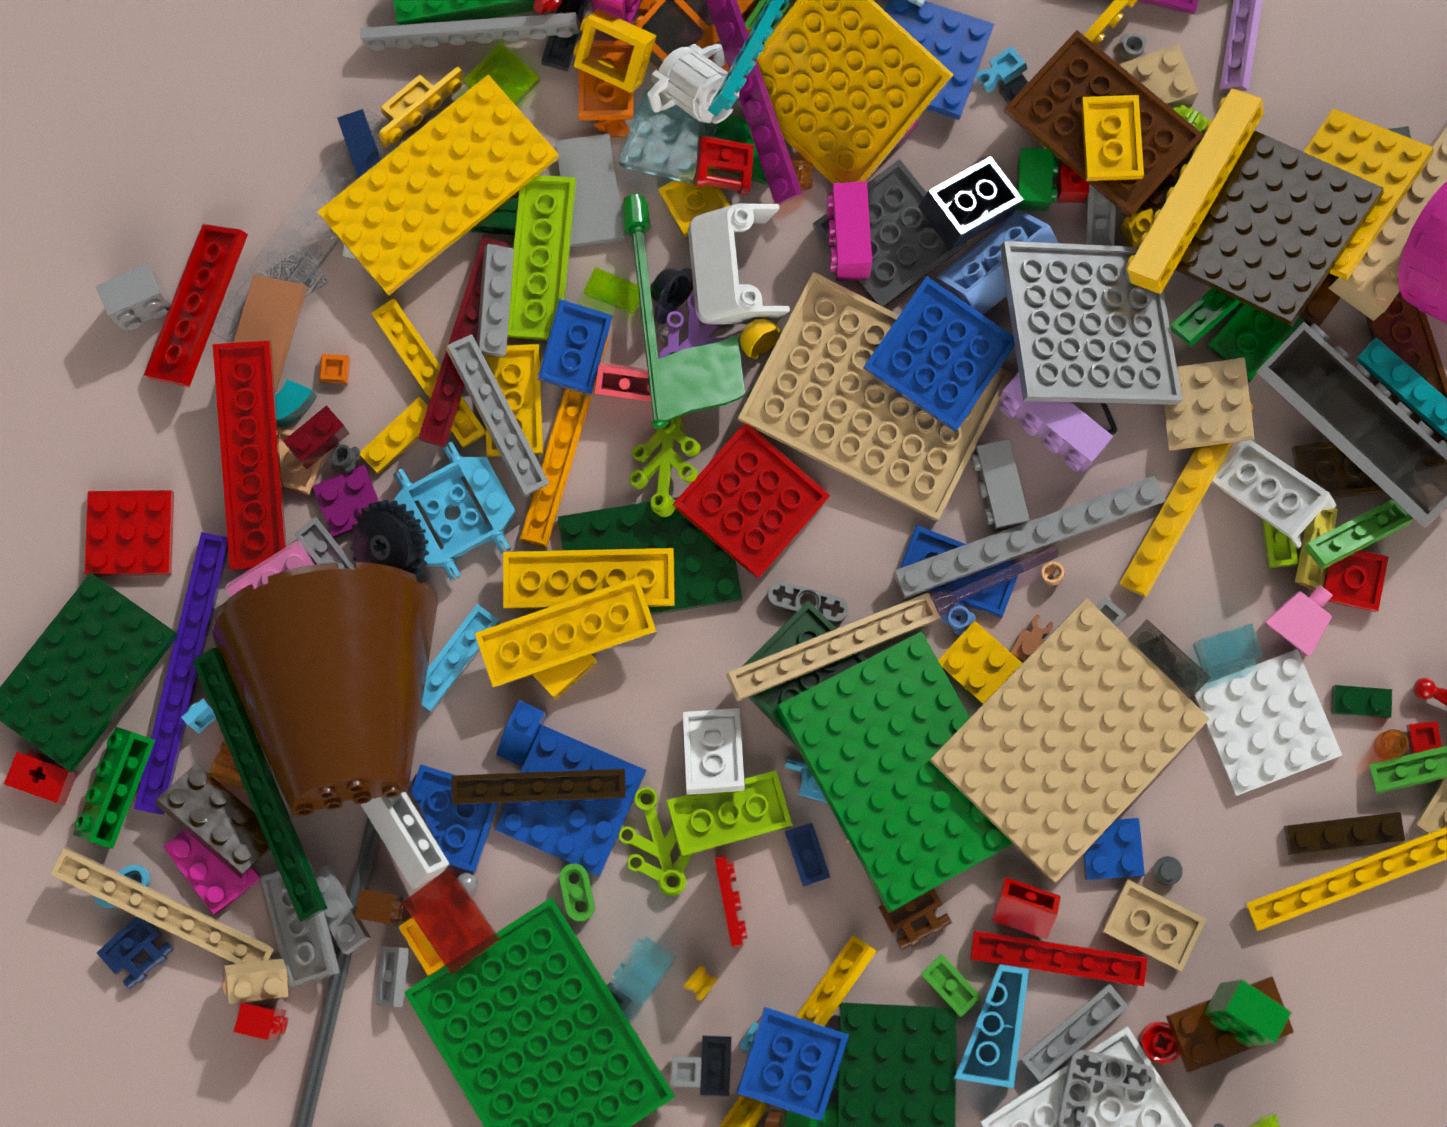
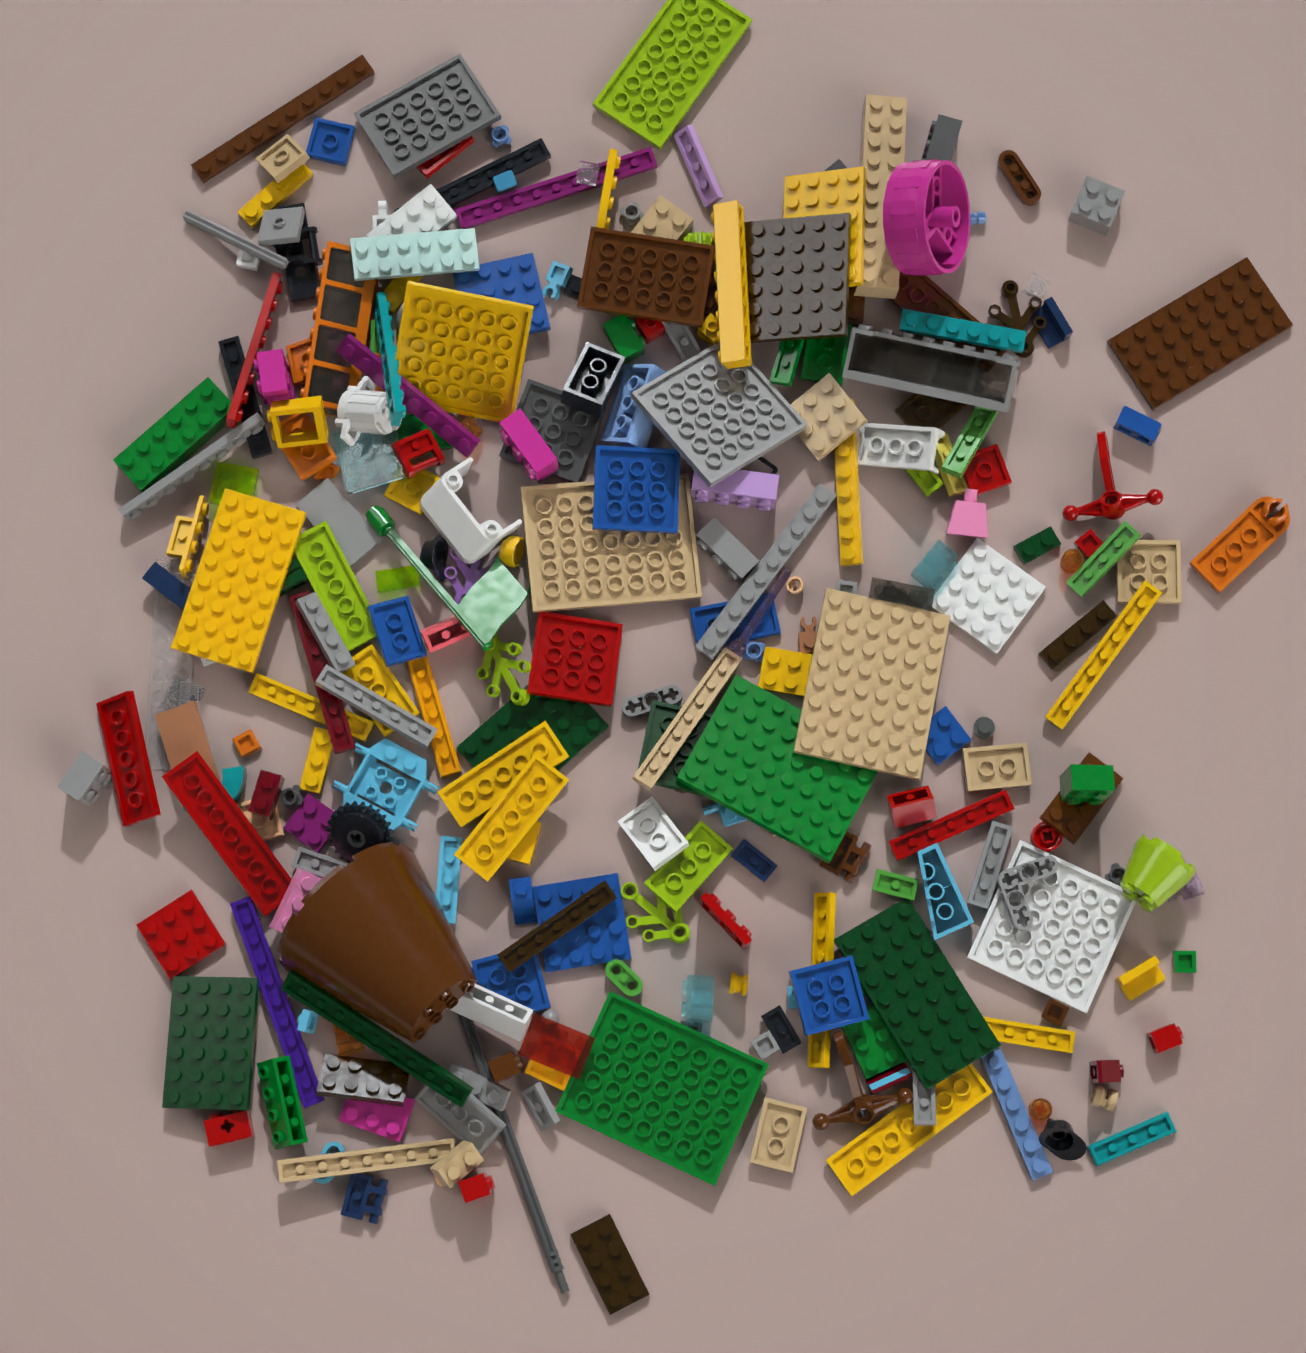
camera: 35 degrees left, 0 degrees up
(1112, 138) = (658, 283): yellow plate -> none

